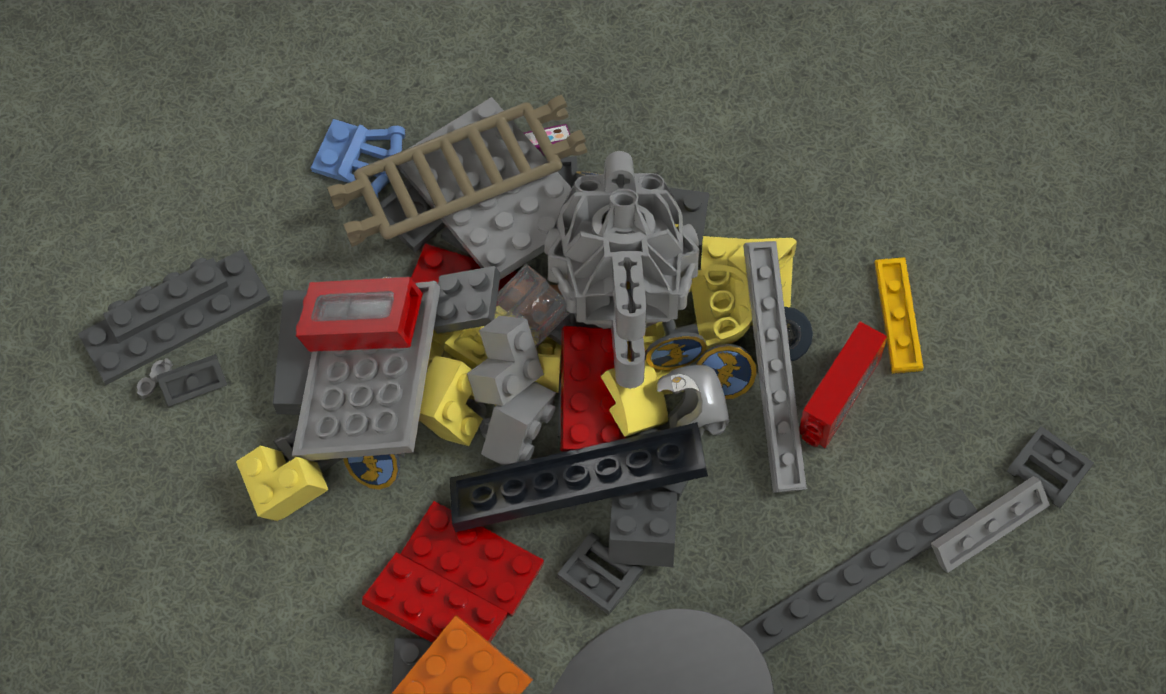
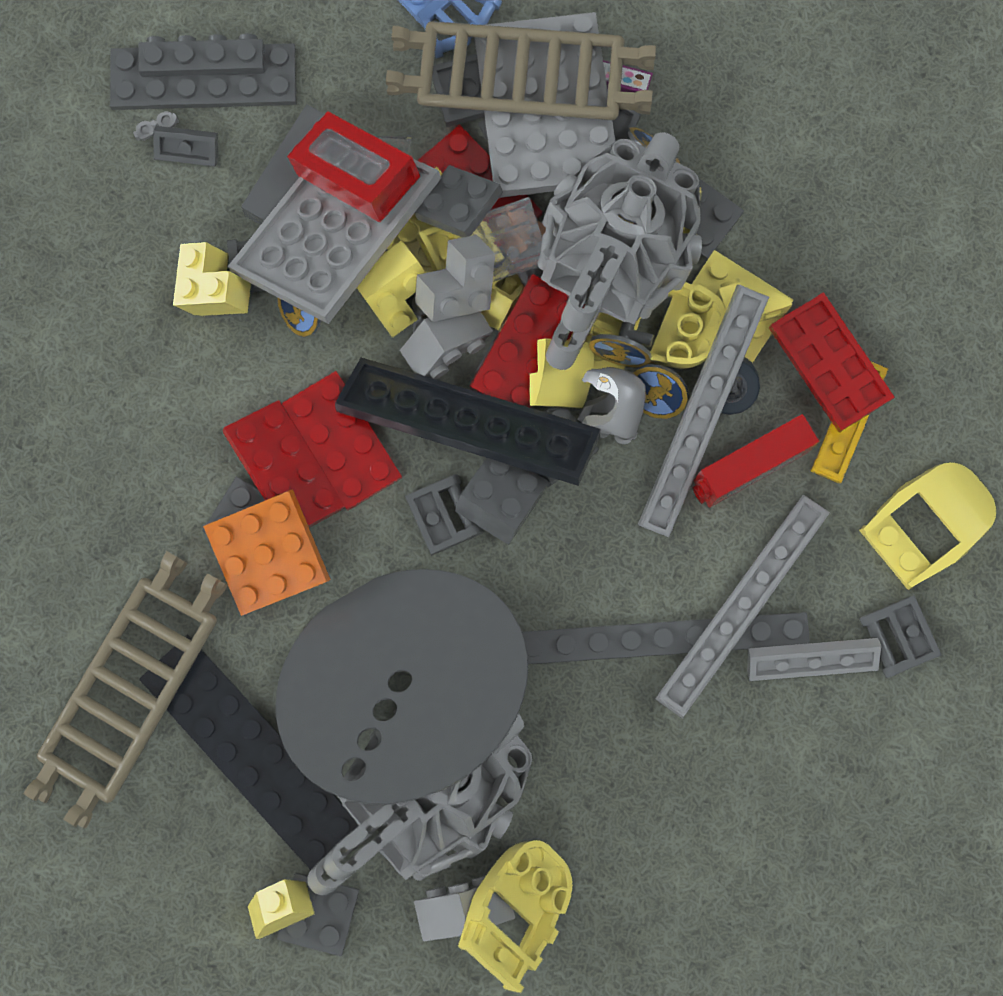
camera: 25 degrees right, 15 degrees up
(856, 274) = (831, 362): none -> red plate
(904, 513) = (742, 606): none -> light grey tile
(1027, 332) = (959, 503): none -> light yellow slope

